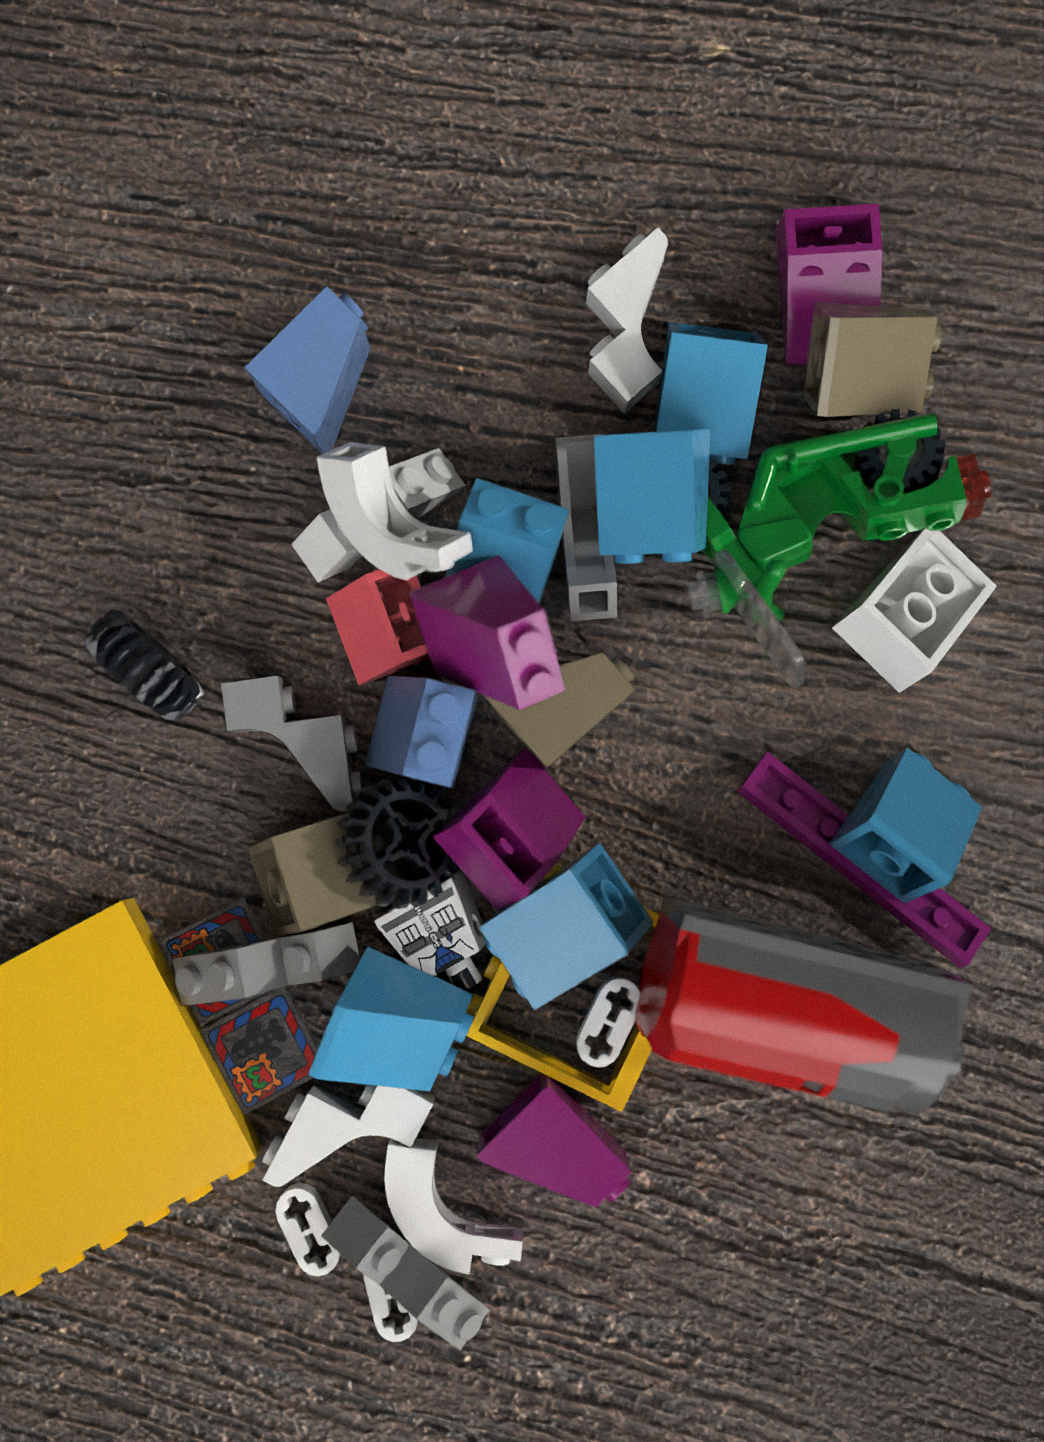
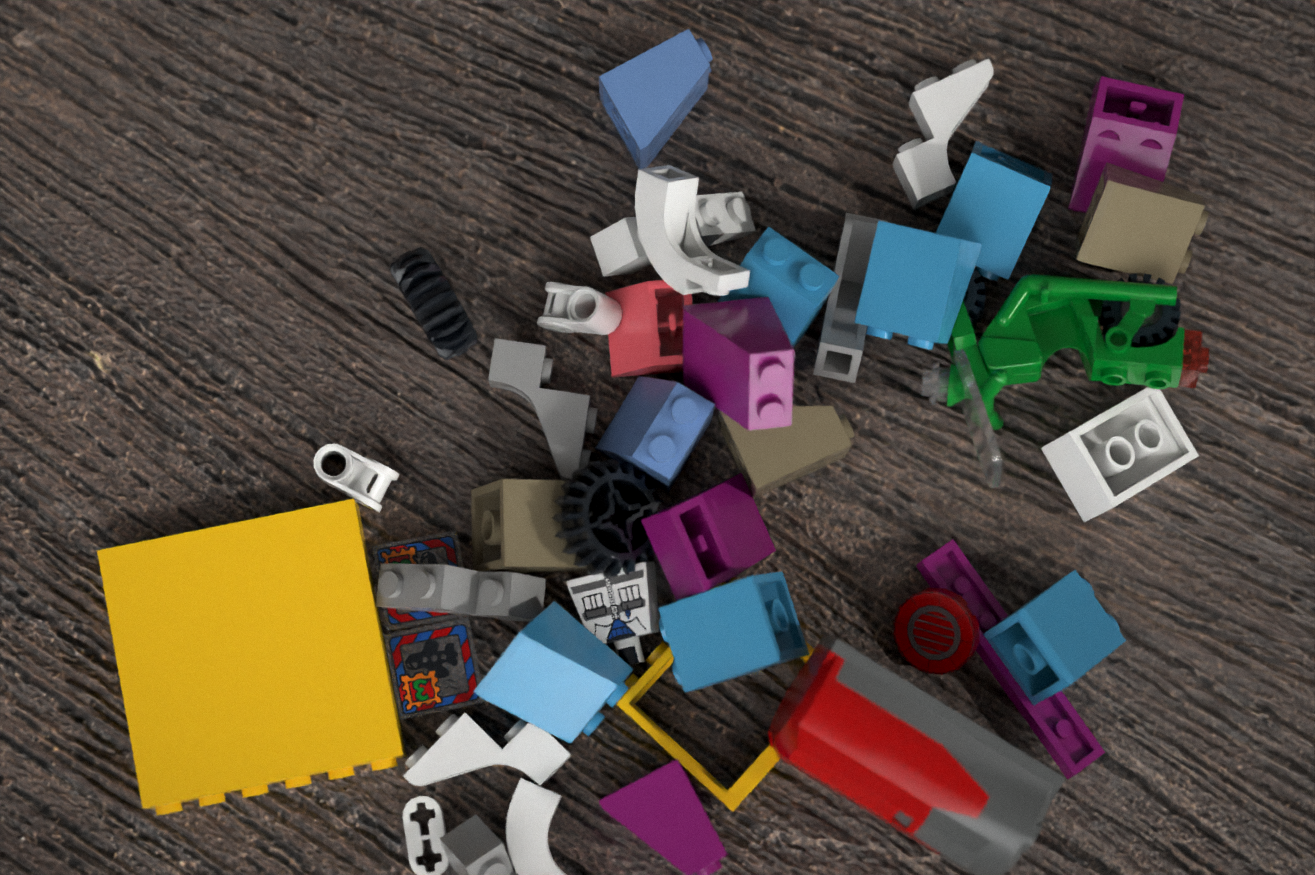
camera: 15 degrees right, 5 degrees down
(125, 873) = (357, 476): none -> white piece
(303, 625) = (579, 310): none -> white piece
(597, 1016) = (736, 720): white beam -> none
(779, 854) = (936, 631): none -> tile

